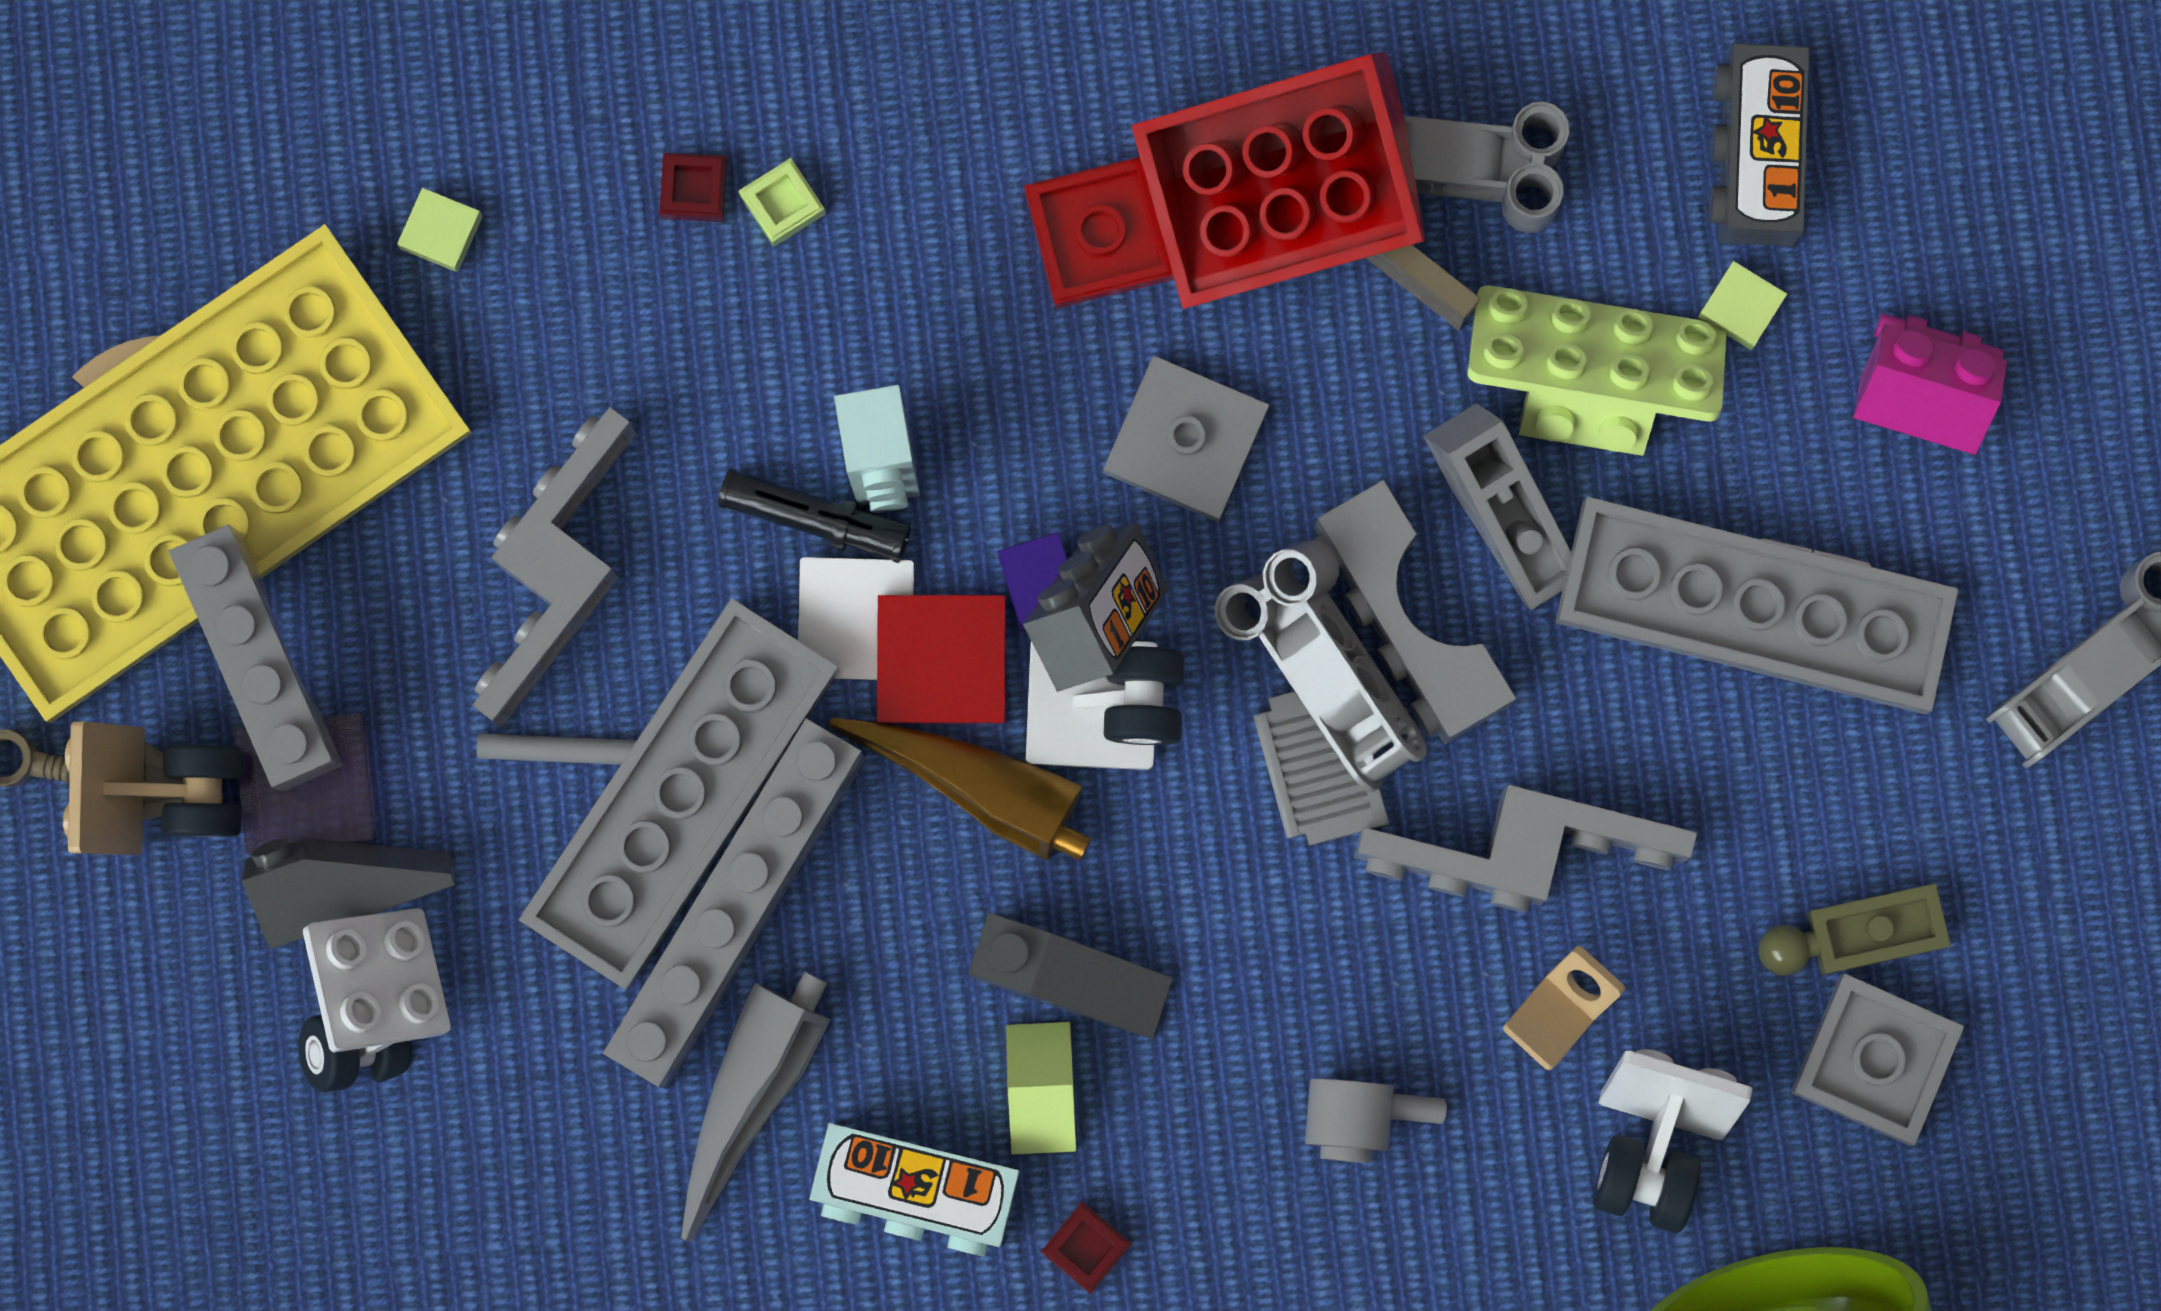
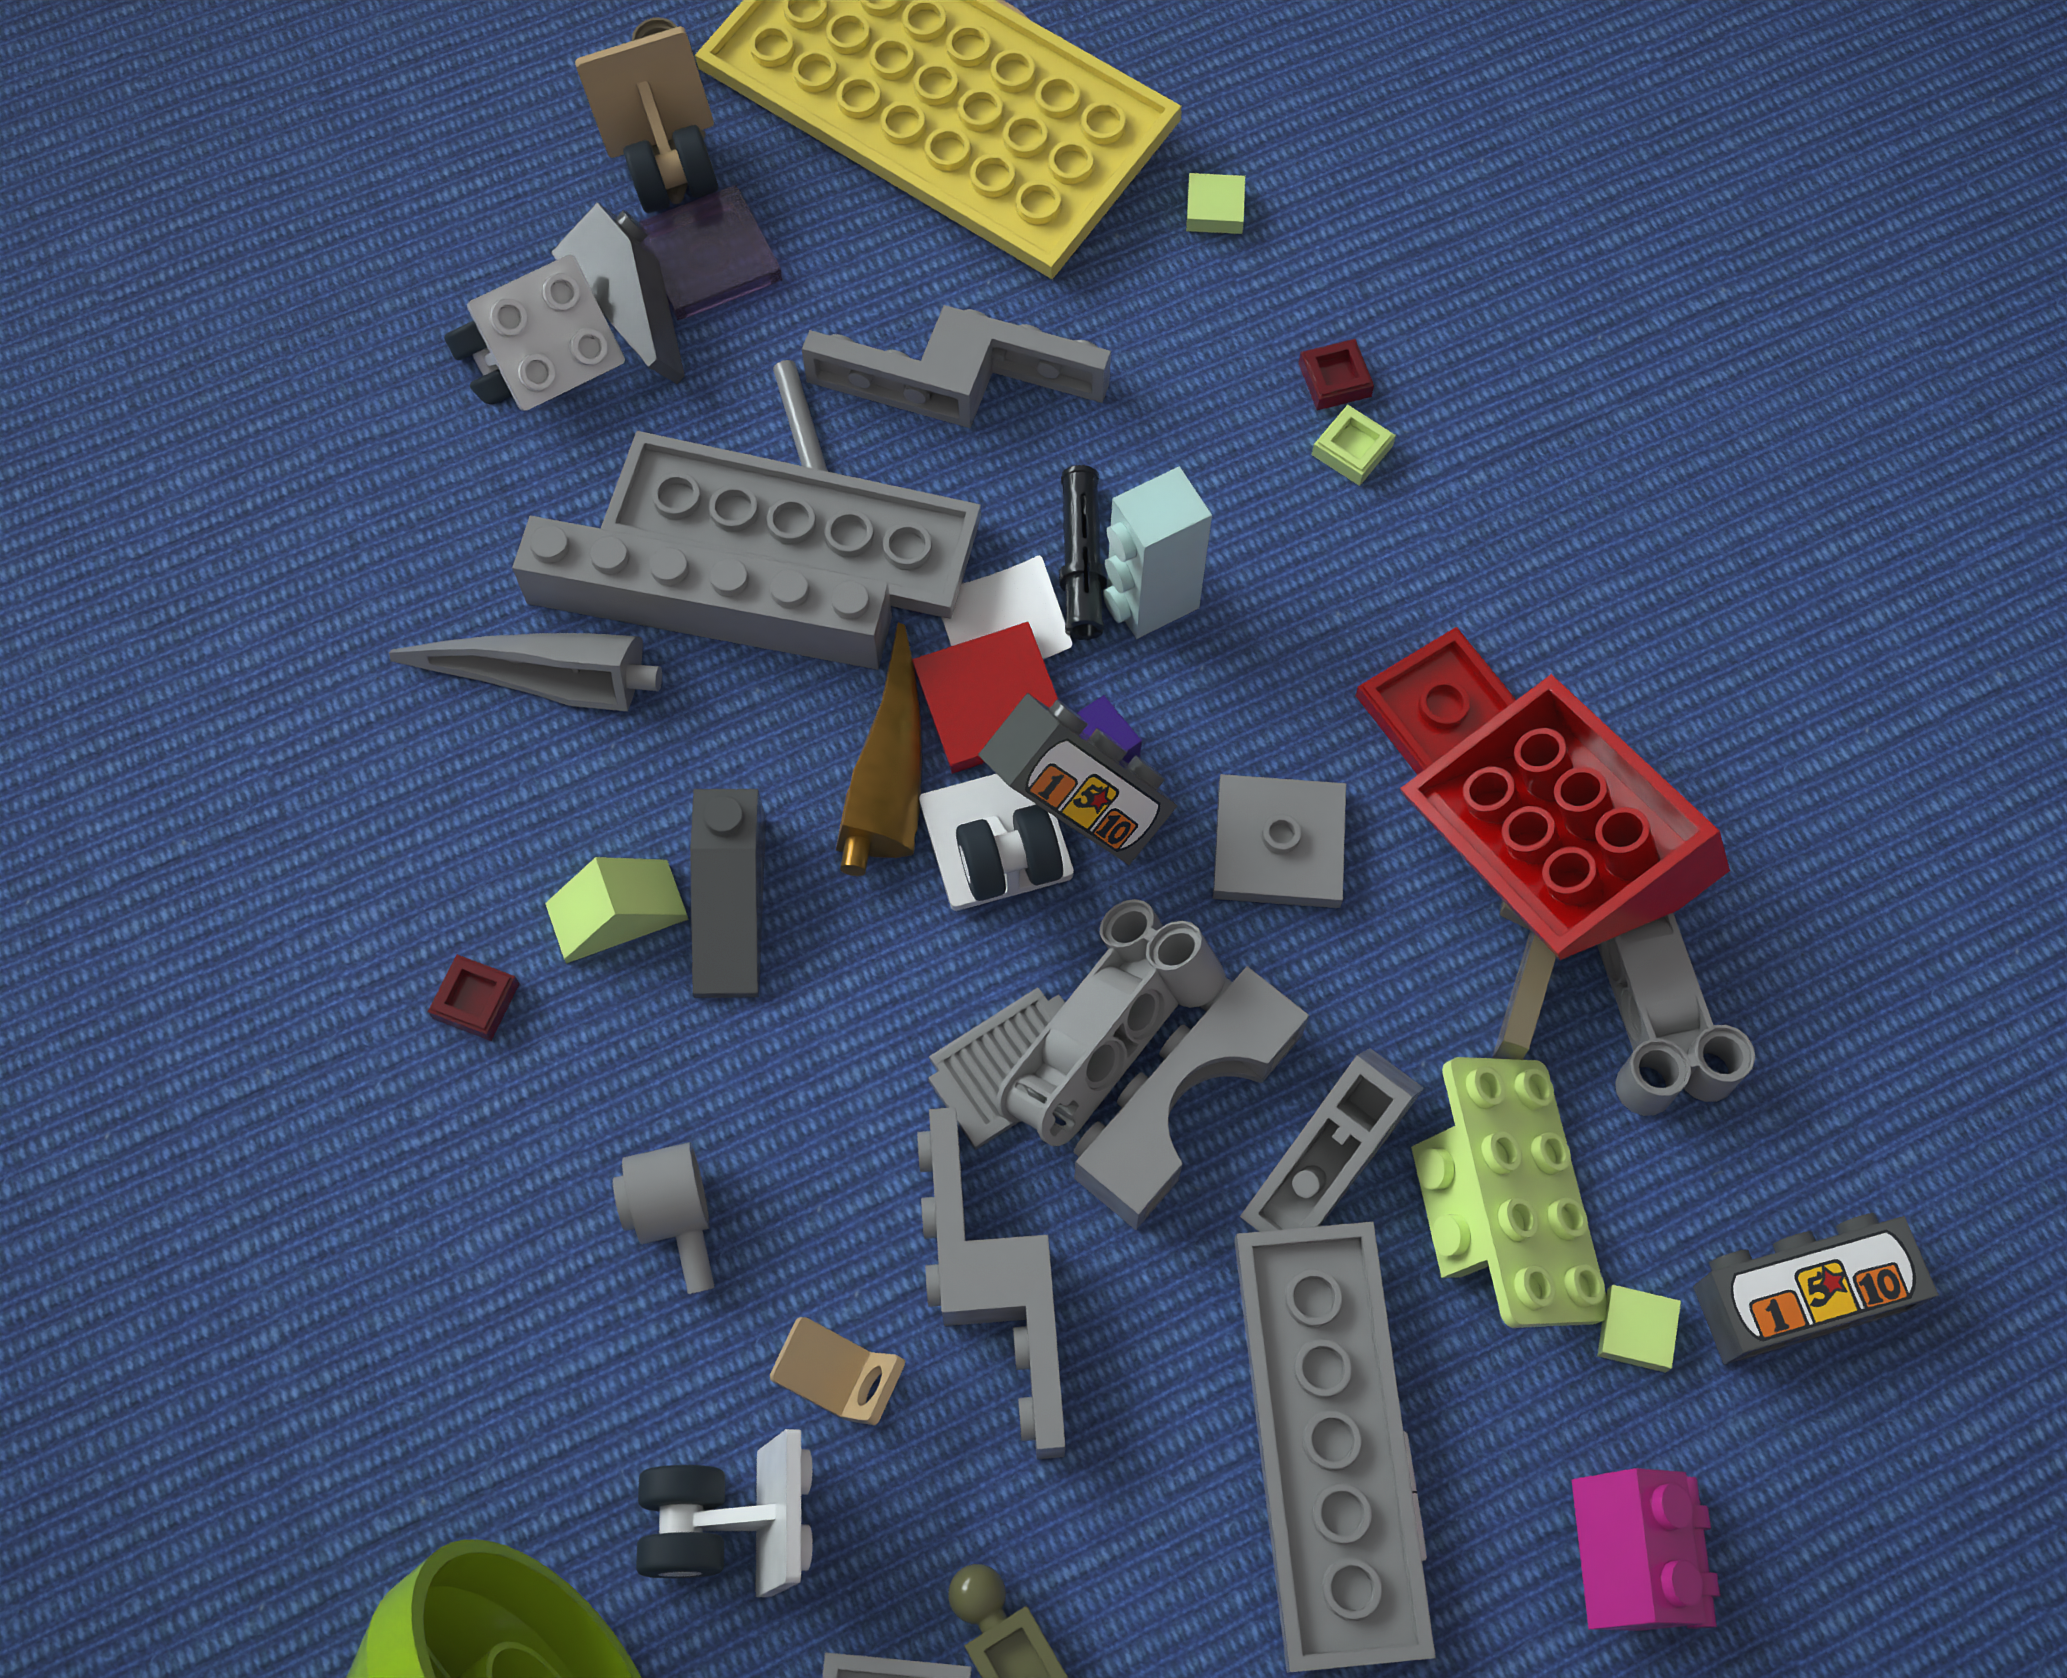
camera: 70 degrees right, 15 degrees down
(253, 658) = (742, 197): light grey arch -> none
(913, 1189) = (485, 823): brick -> none

